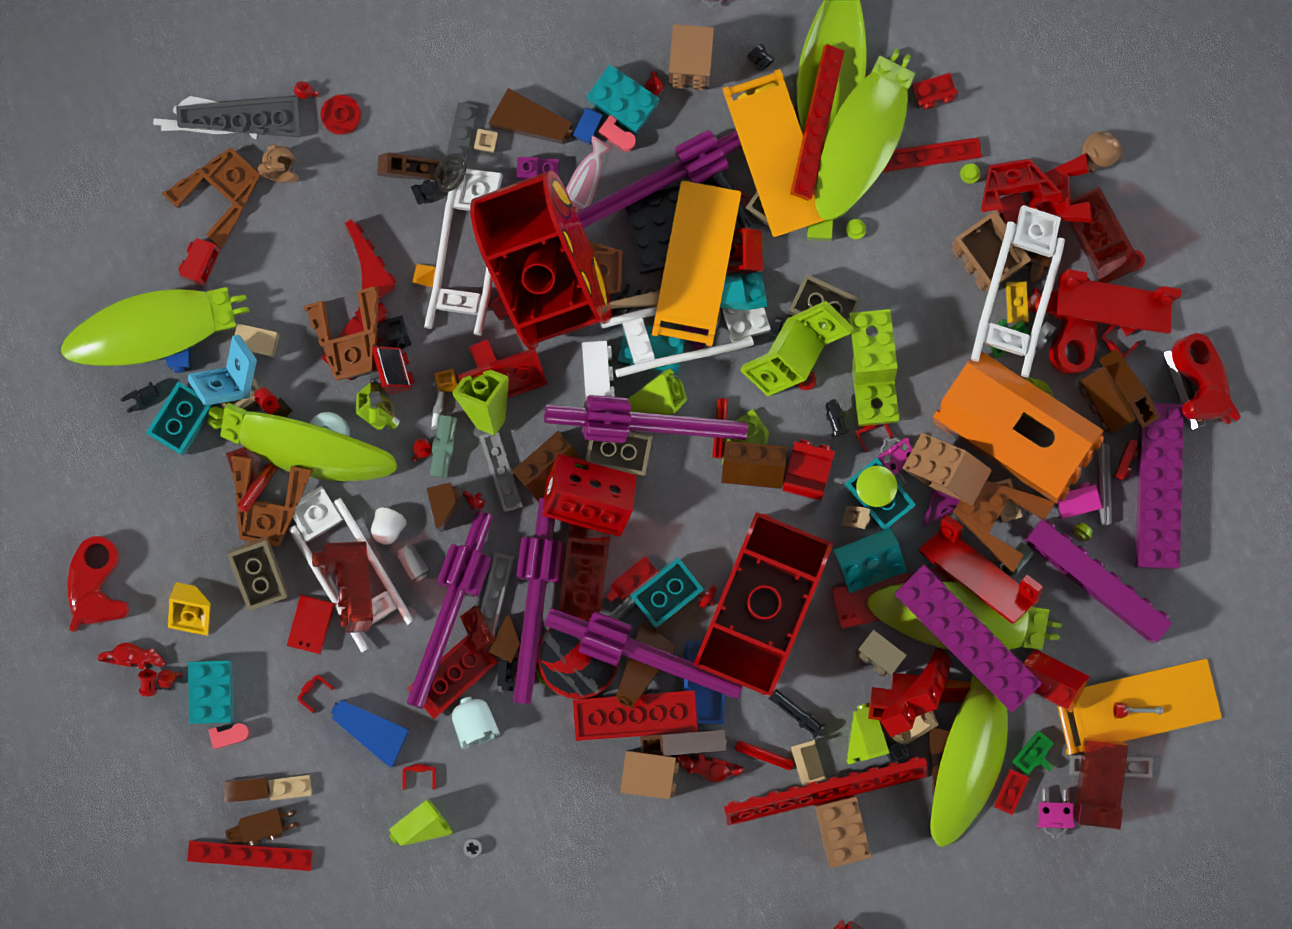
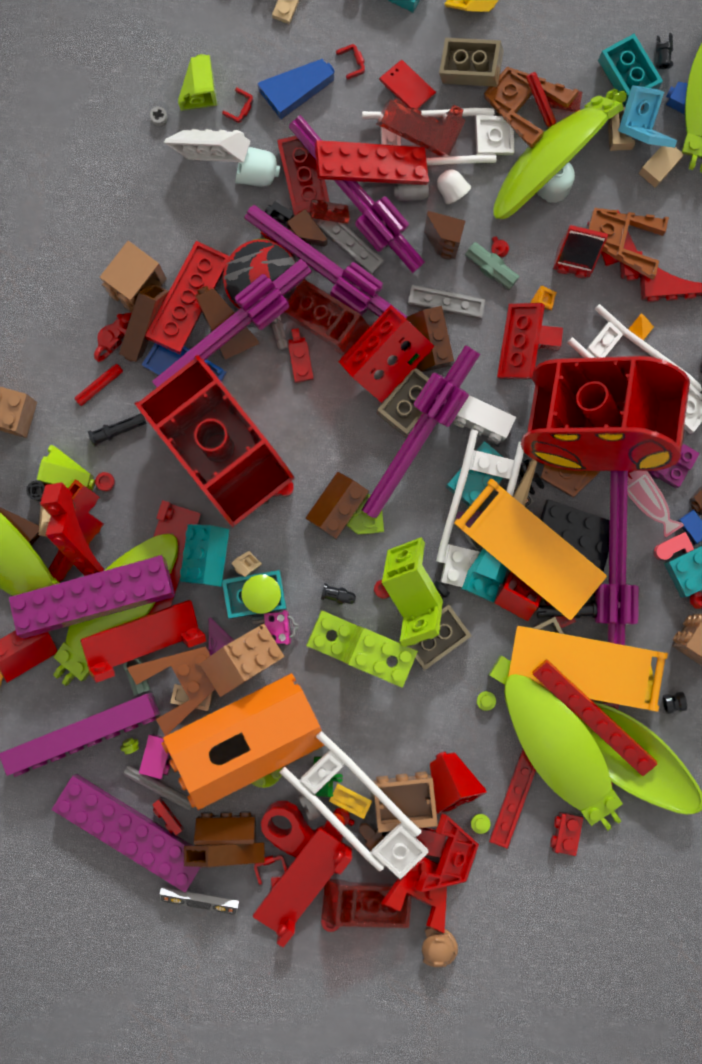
camera: 115 degrees right, 0 degrees up
(270, 404) = (601, 145): red leg -> none
(375, 406) = (551, 225): lime torso -> none
(397, 332) = (606, 279): black bracket -> none
(413, 611) = (371, 162): none -> red plate
(438, 409) = (525, 279): light grey piece -> none
(474, 500) = (434, 266): red piece -> none
(479, 775) = (210, 145): none -> white slope
(484, 400) = (512, 315): lime slope -> none
(659, 396) = (435, 458): lime slope -> none
(666, 592) = (273, 376): teal brick -> none
(706, 597) = (251, 407): red piece -> none
(721, 414) = (392, 503): red axle -> none
(808, 470) = (307, 547): red piece -> none
(808, 763) = (71, 415): tan panel -> none
(827, 791) = (43, 407): red plate -> none
(852, 696) = (105, 481): none -> red tile
(868, 428) = (315, 616): red piece -> none
(879, 653) = (122, 518): dark tan brick -> none
(947, 218) = (453, 782): none -> red slope
(1209, 375) = (196, 928): red animal -> none

